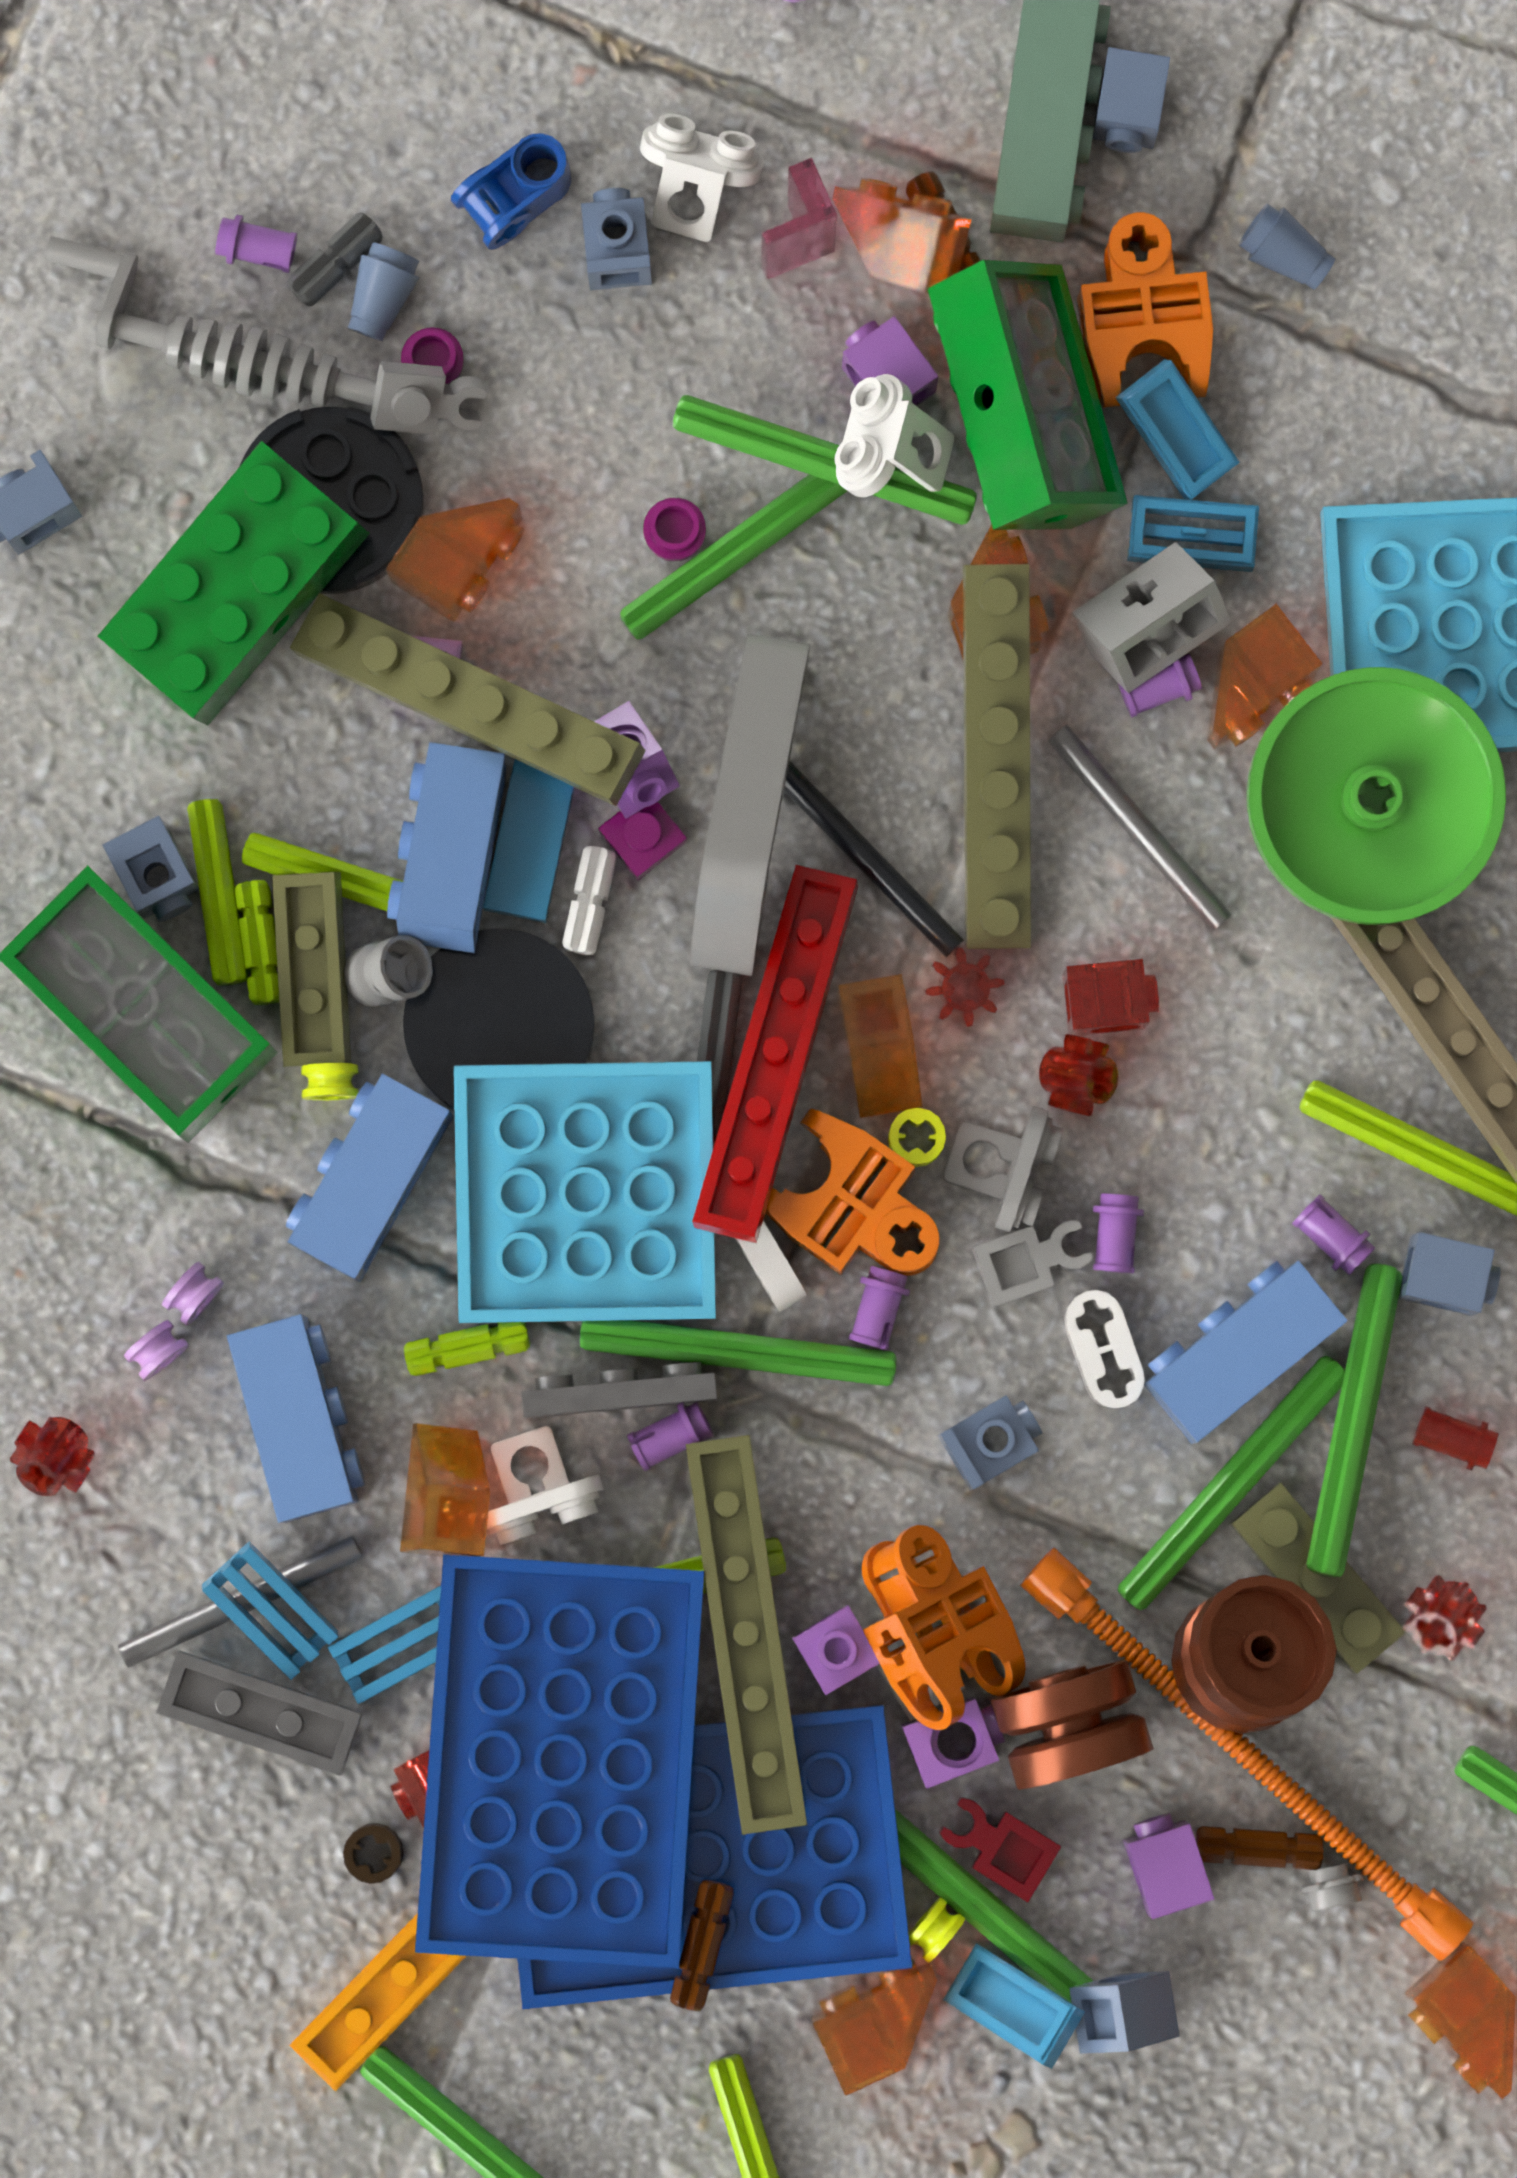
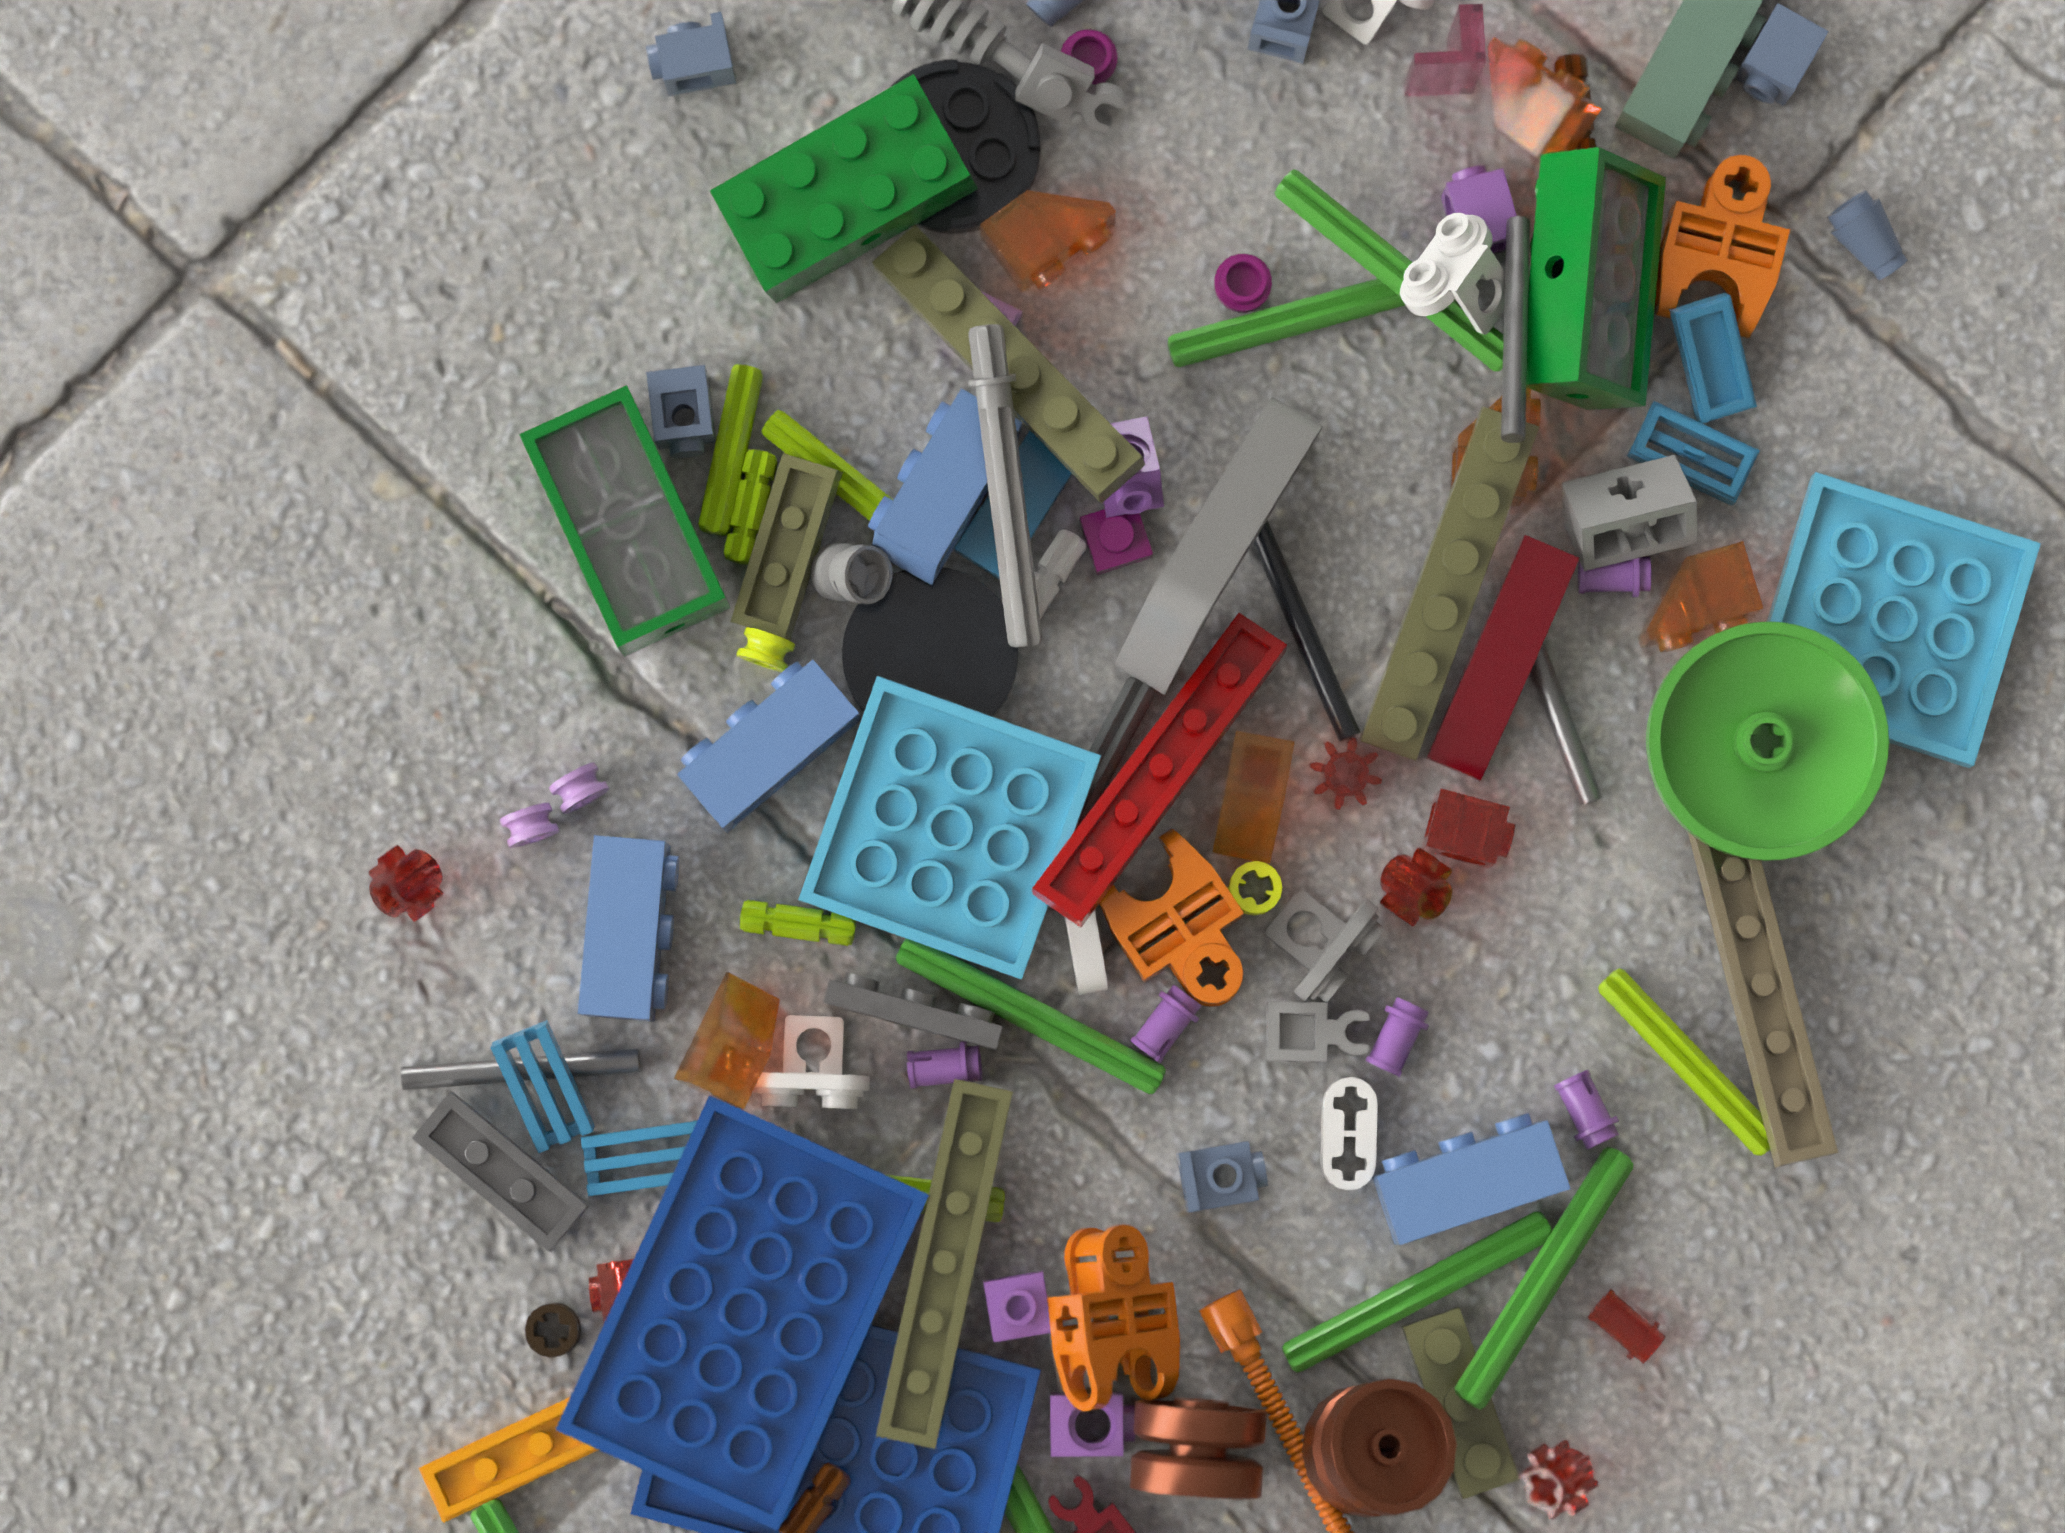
camera: 20 degrees right, 0 degrees up
(511, 823) = (1005, 484): none -> light grey axle
(968, 475) = (1515, 329): none -> flat silver bar
(1079, 811) = (1502, 658): none -> dark red slope
(1449, 1274) = (1674, 1182): sand blue brick -> none

